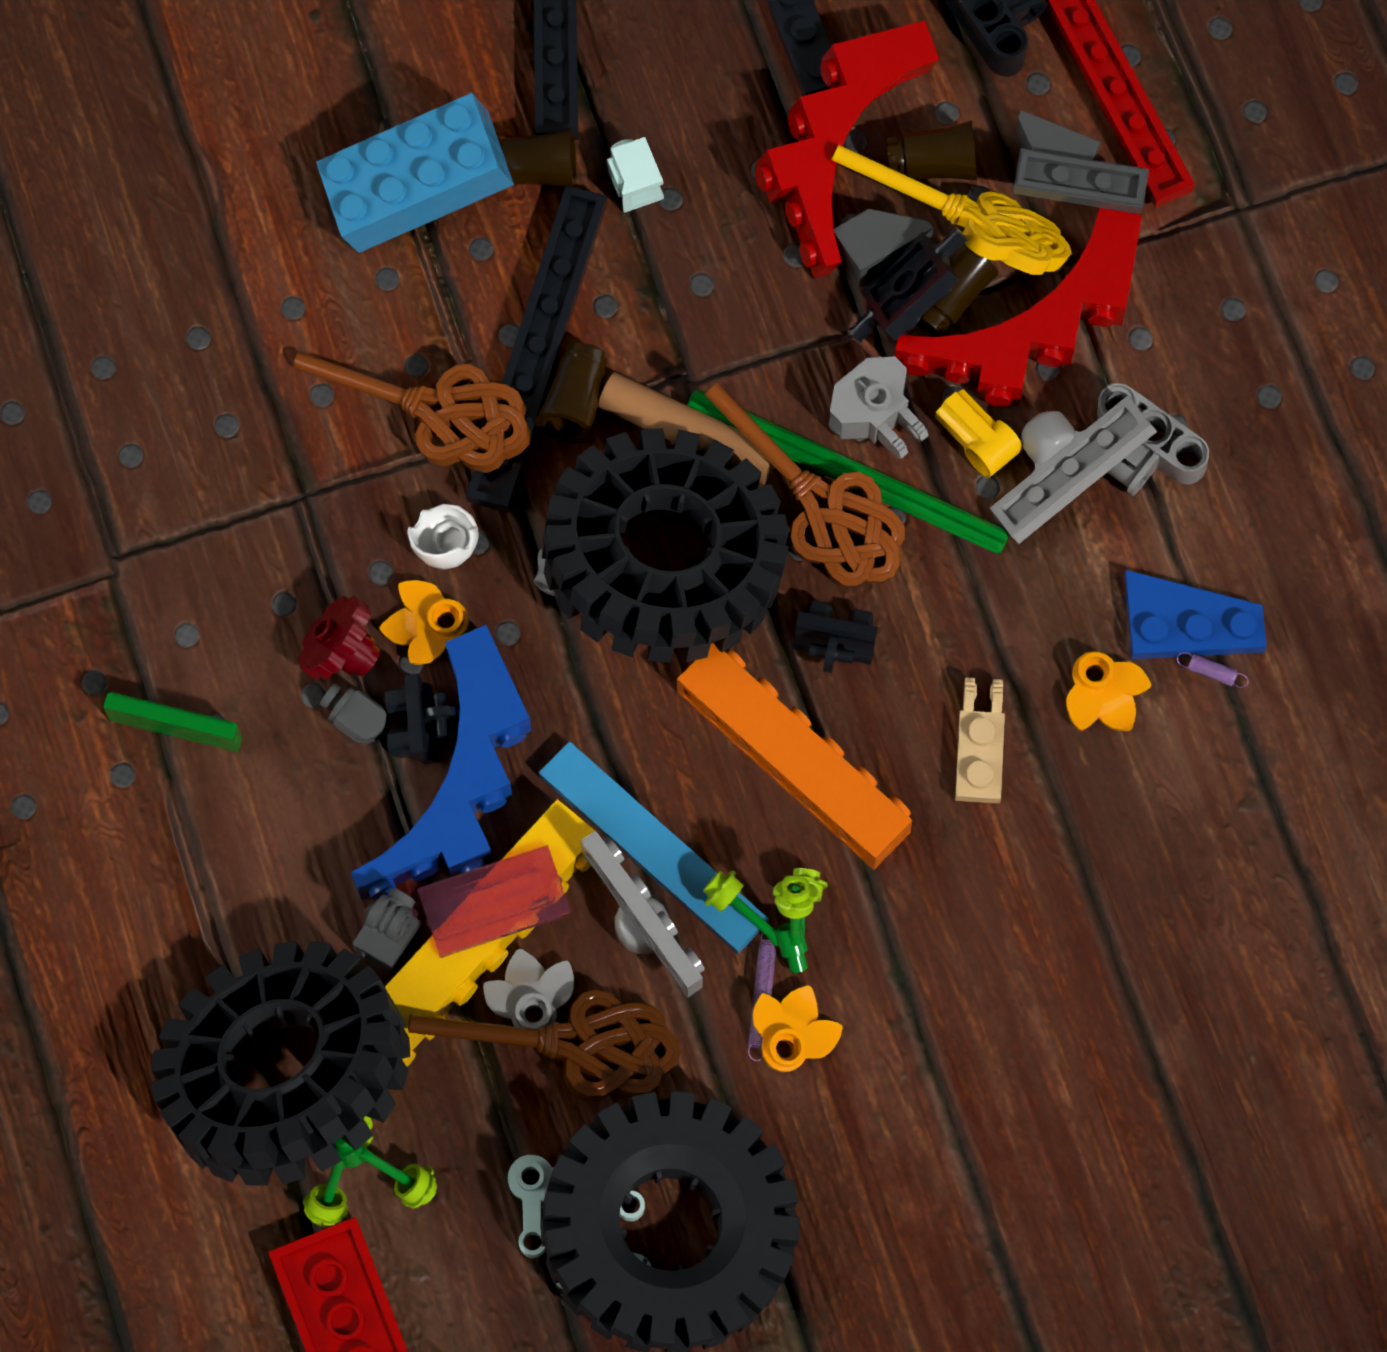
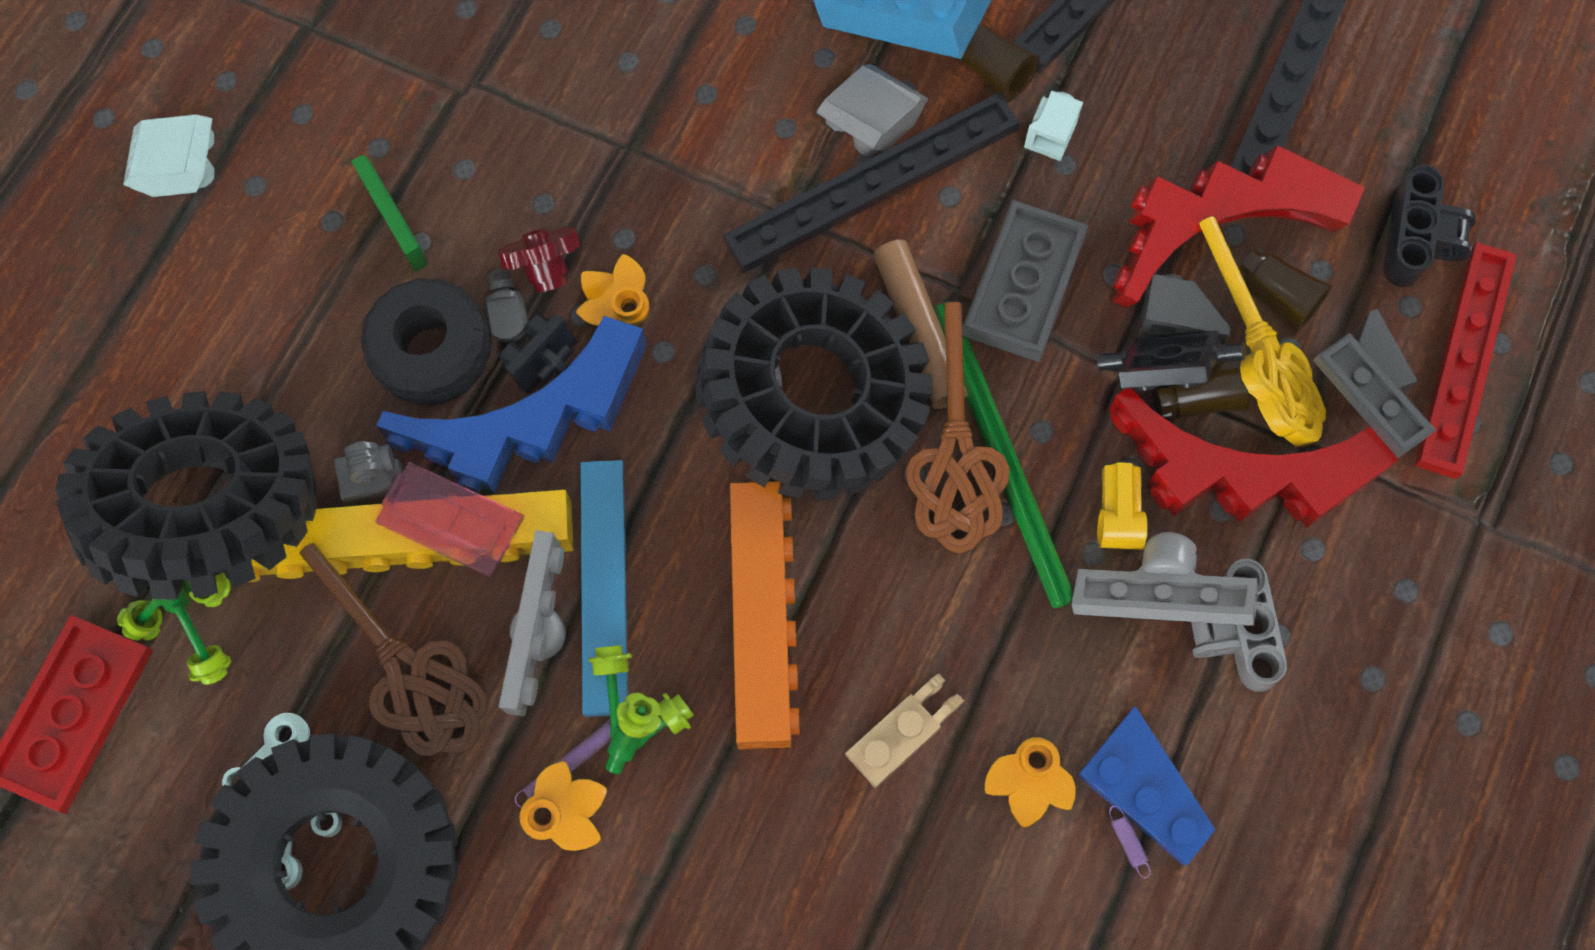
camera: 45 degrees right, 0 degrees up
(309, 752) = (407, 312): none -> black tyre
(444, 536) = (680, 248): white hair -> none
(459, 409) = (764, 212): dark orange piece -> none
(474, 287) = (872, 109): none -> light grey slope
(528, 988) = (425, 602): light grey plate -> none
(574, 395) = (862, 231): dark brown plant -> none
(735, 320) = (1024, 281): none -> dark grey tile
(835, 638) = (871, 560): black hips -> none
(872, 403) = (1064, 420): light grey hinge -> none

